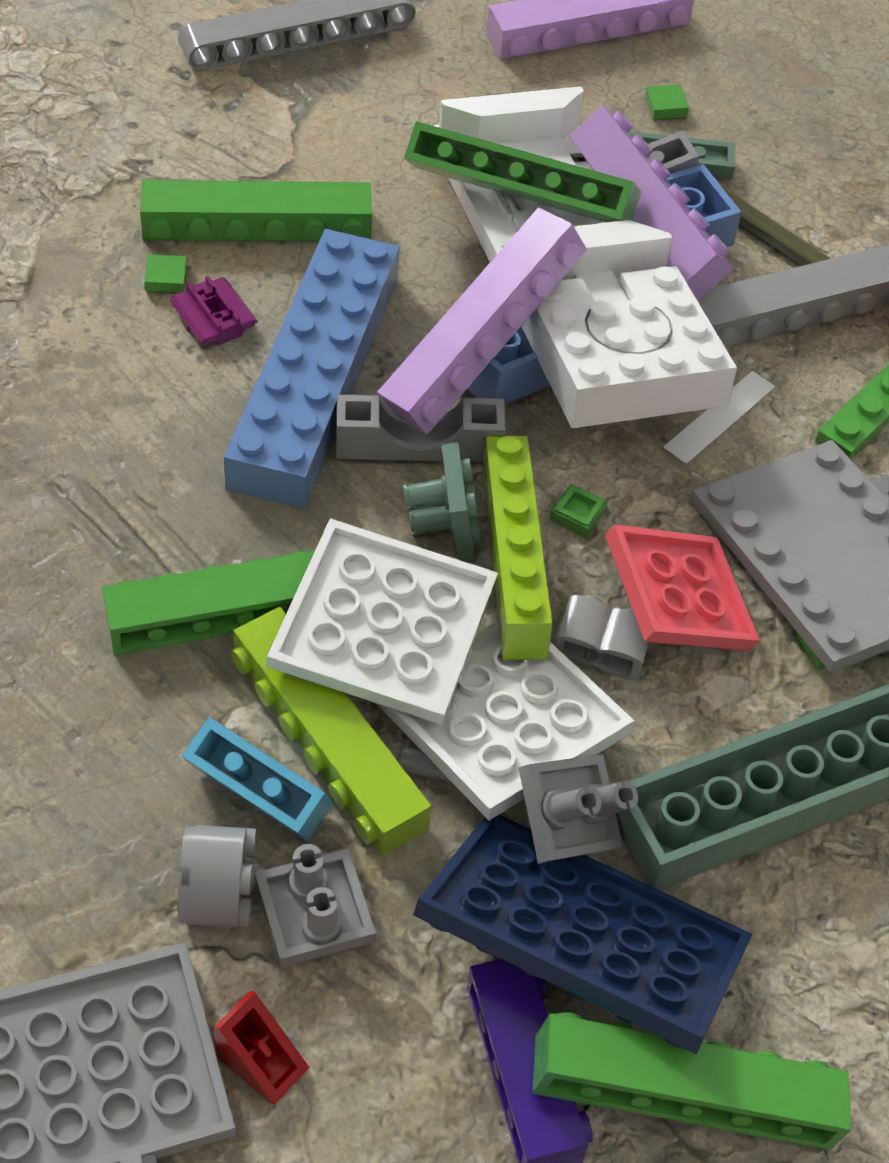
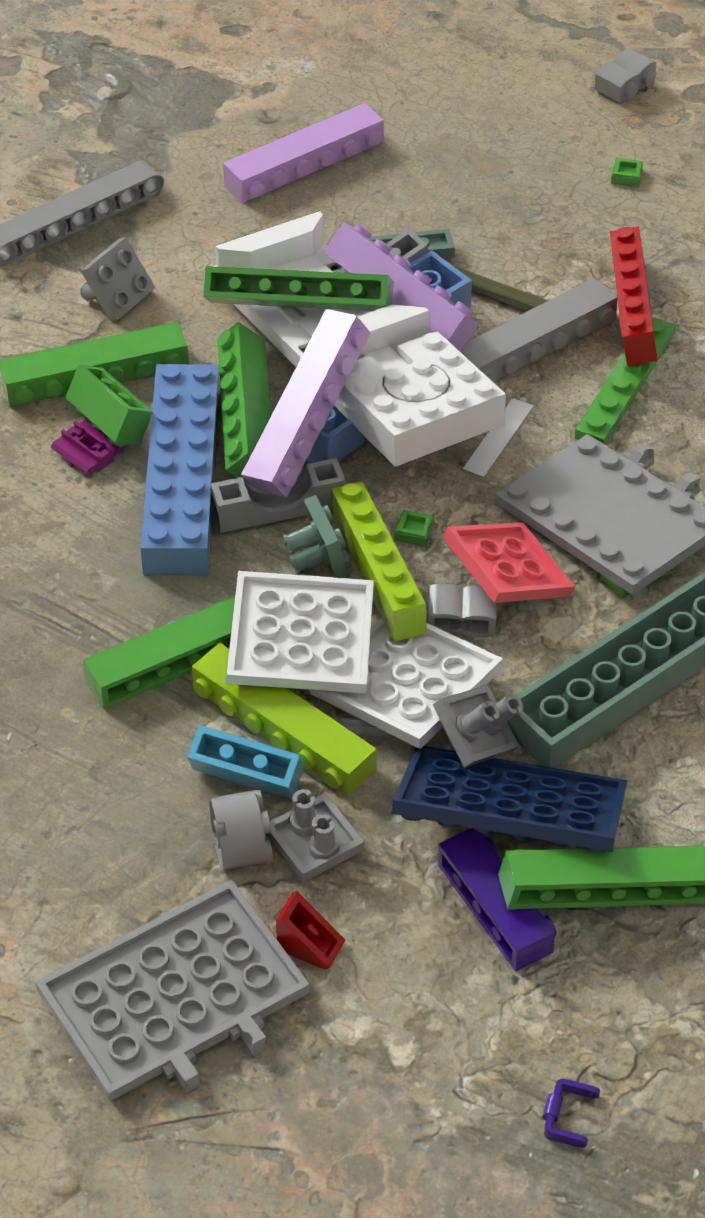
camera: 10 degrees left, 5 degrees down
(165, 273) = (39, 427): bright green tile -> none
(253, 266) = (109, 405): none -> bright green brick
(316, 115) = (116, 280): none -> light grey plate
(419, 288) = (243, 394): none -> bright green brick
(666, 102) = (385, 208): bright green tile -> none

